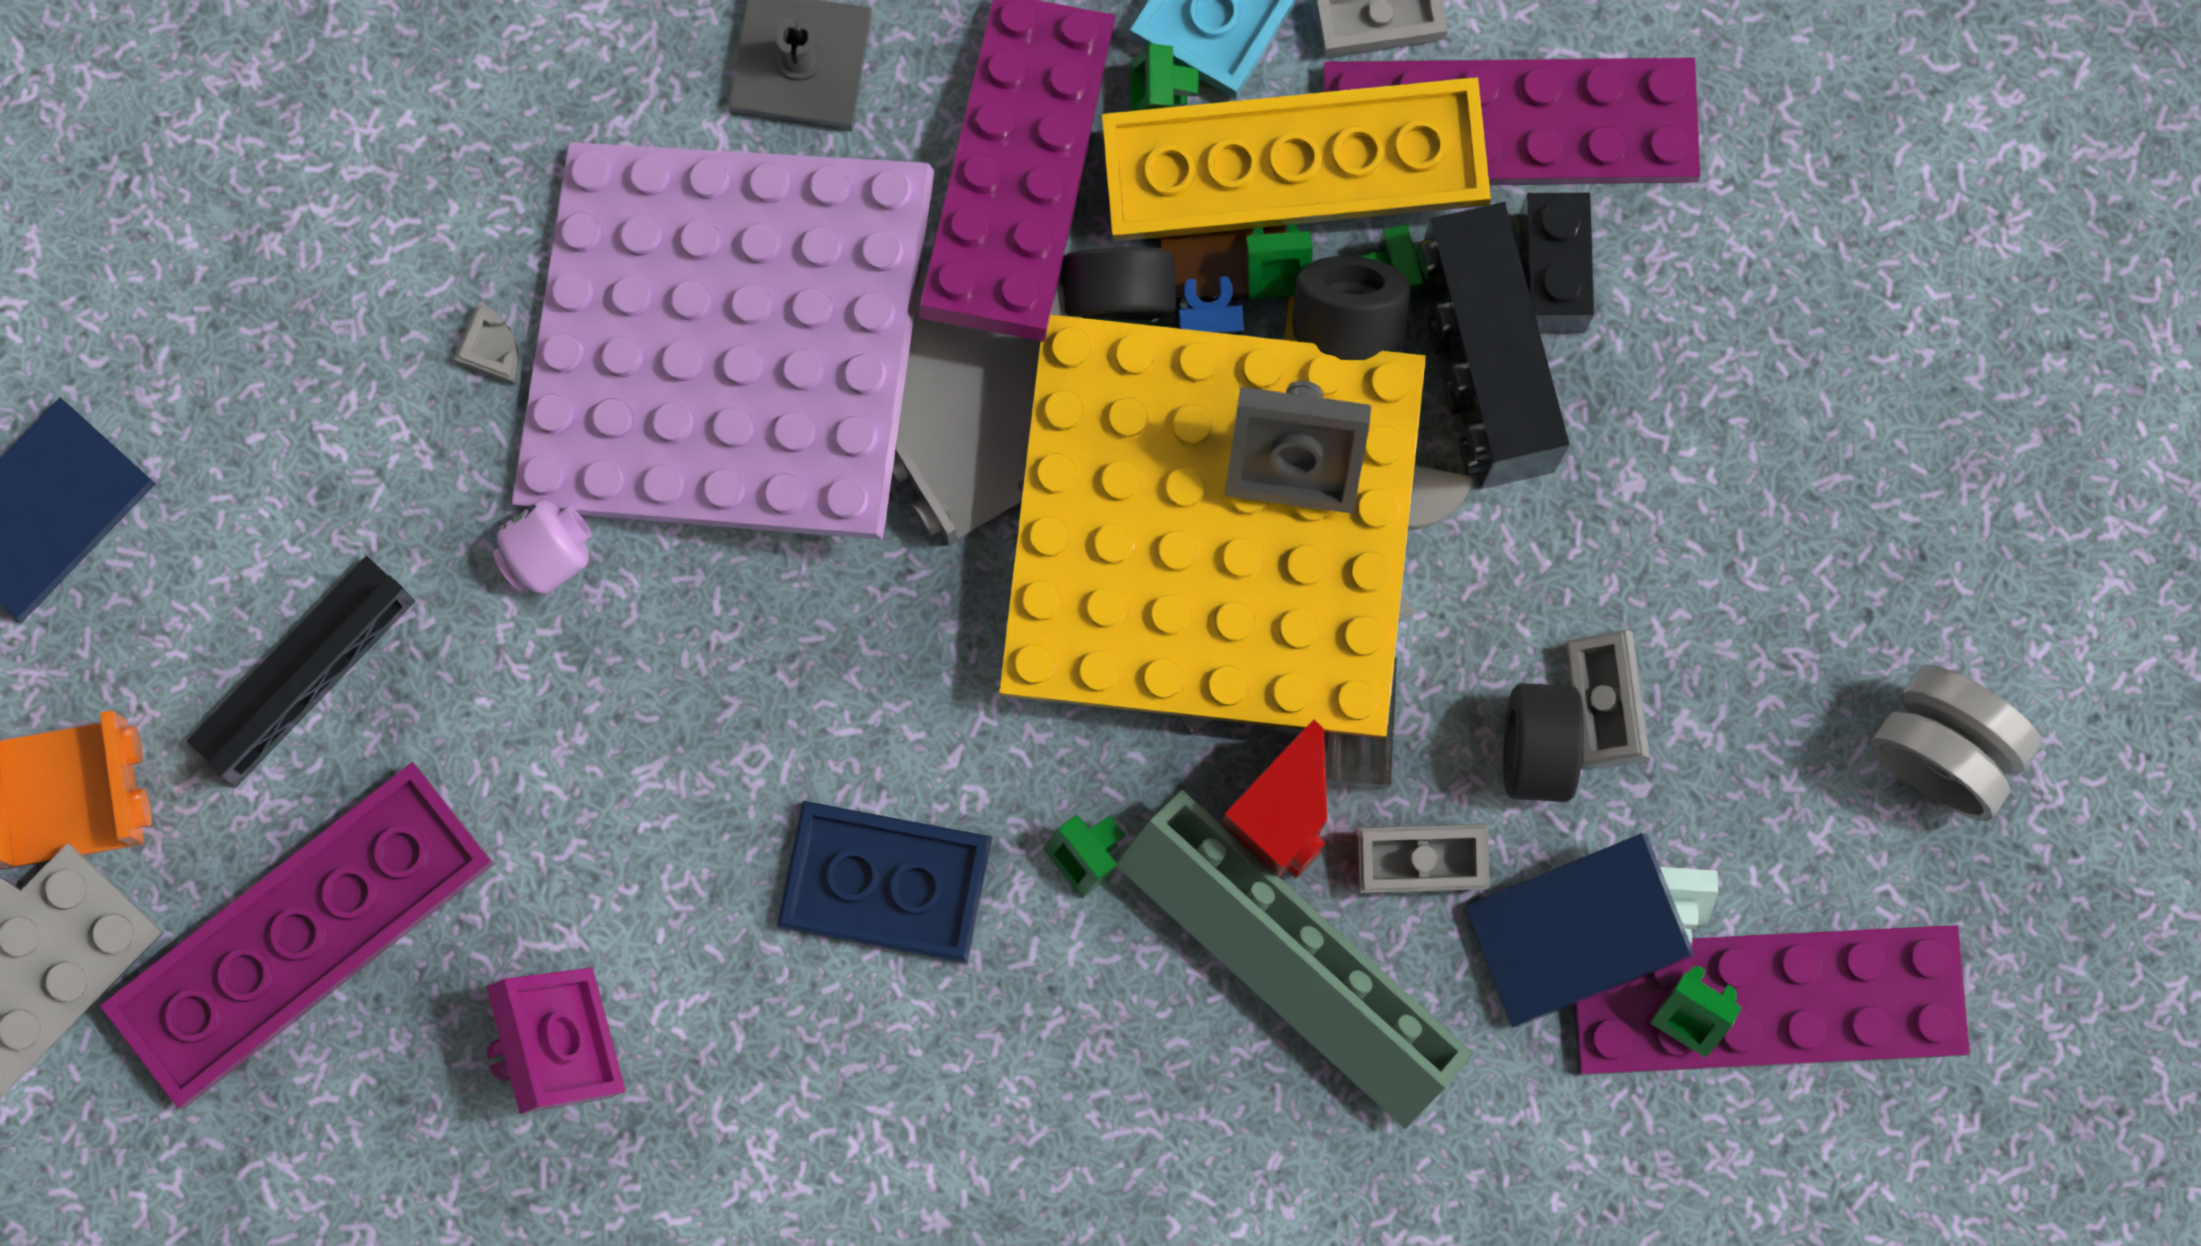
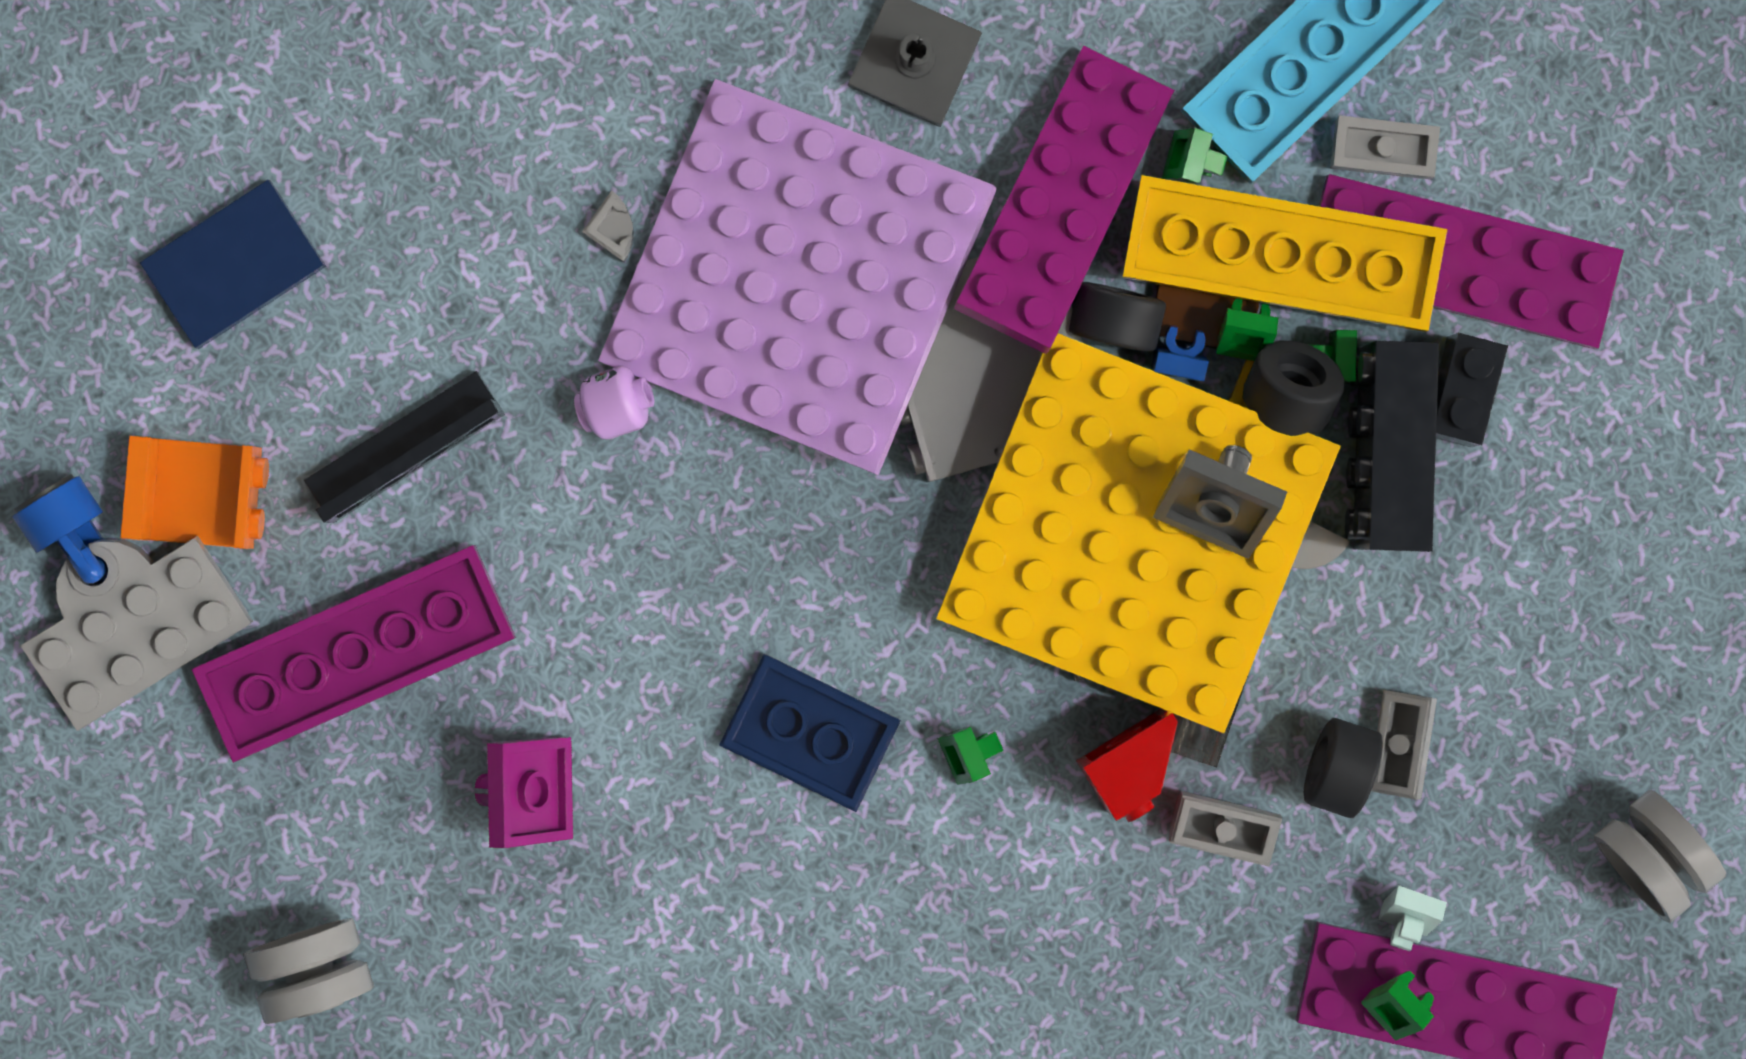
camera: 20 degrees right, 10 degrees up
(1294, 959) = (1105, 881): sand green brick -> none
(1580, 930) = (1328, 918): dark blue tile -> none

